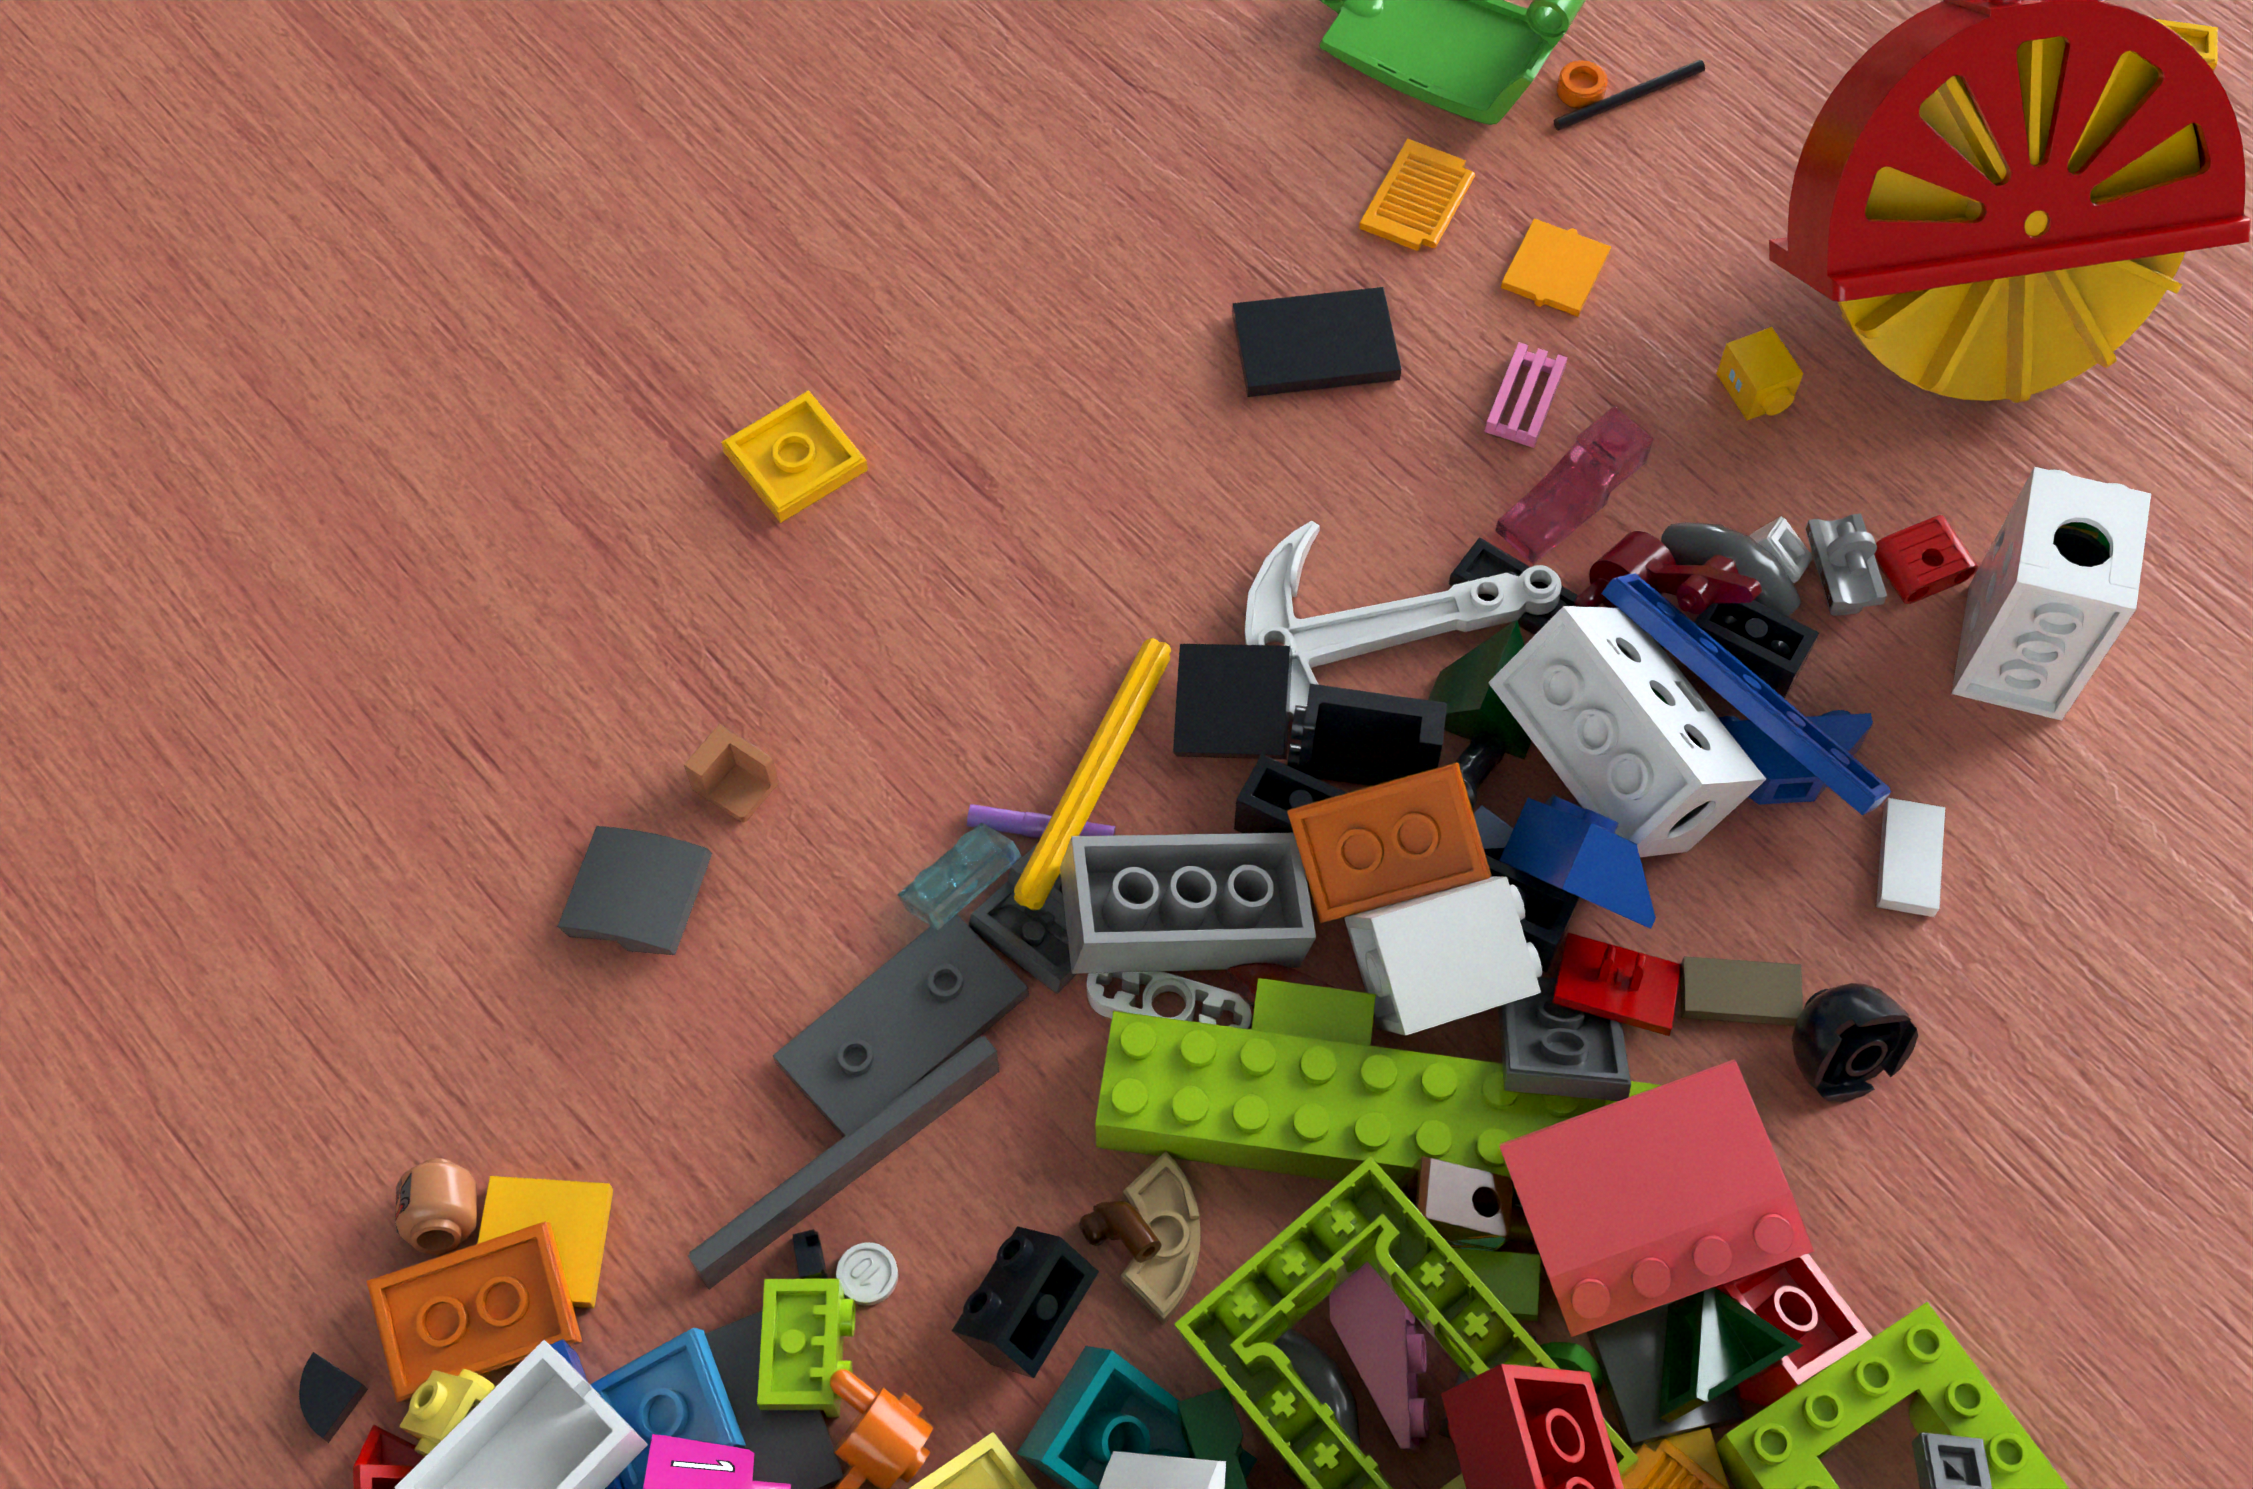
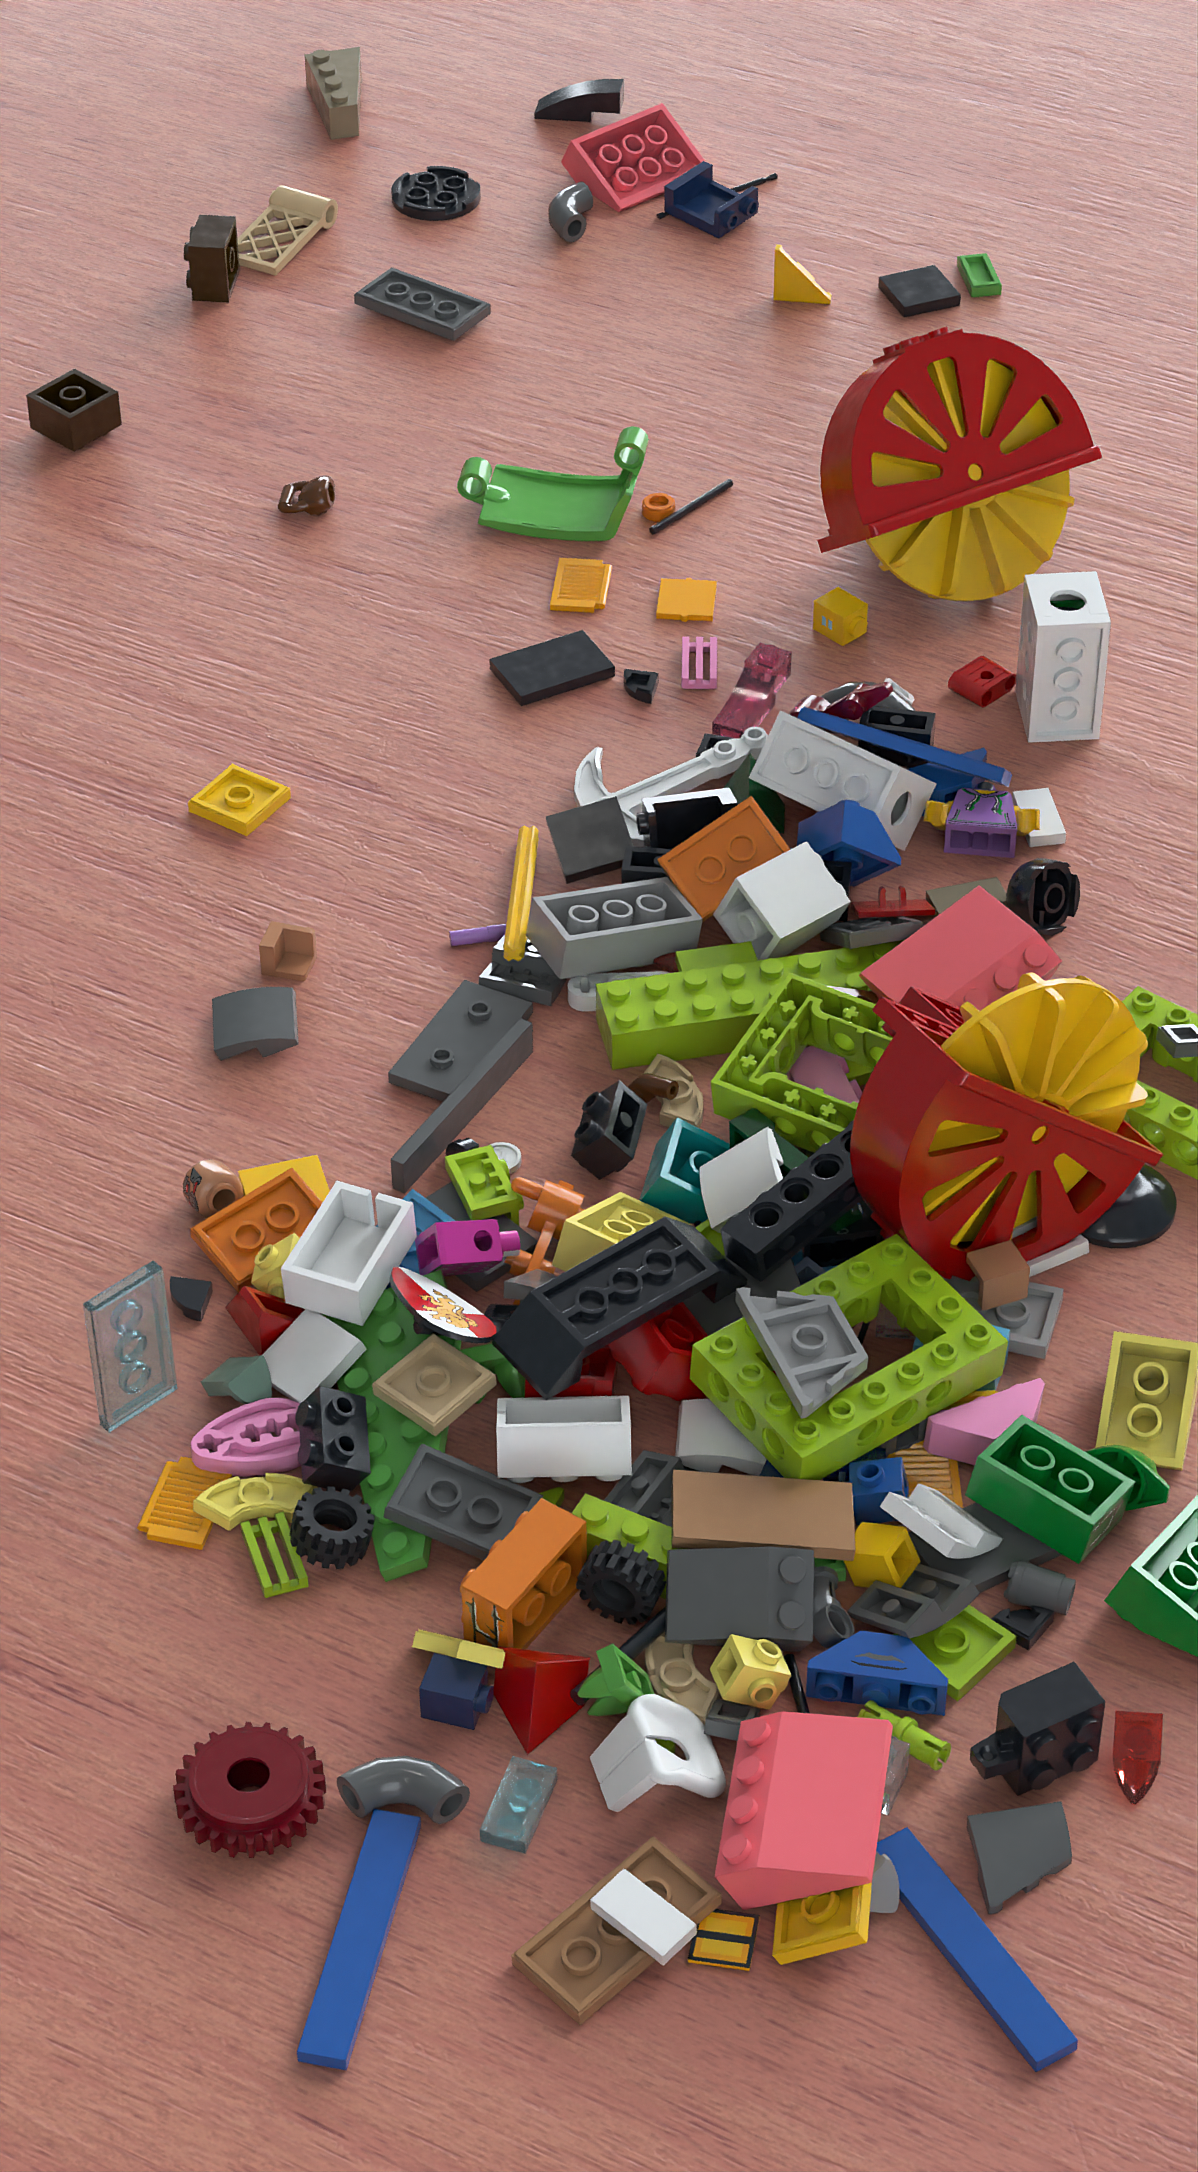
camera: 20 degrees left, 20 degrees down
(959, 875) = (461, 962): clear light blue plate -> none
(1428, 411) = (641, 684): none -> black tile
(1818, 852) = (981, 821): none -> medium lavender torso
(1846, 564) = (937, 690): light grey hips -> none

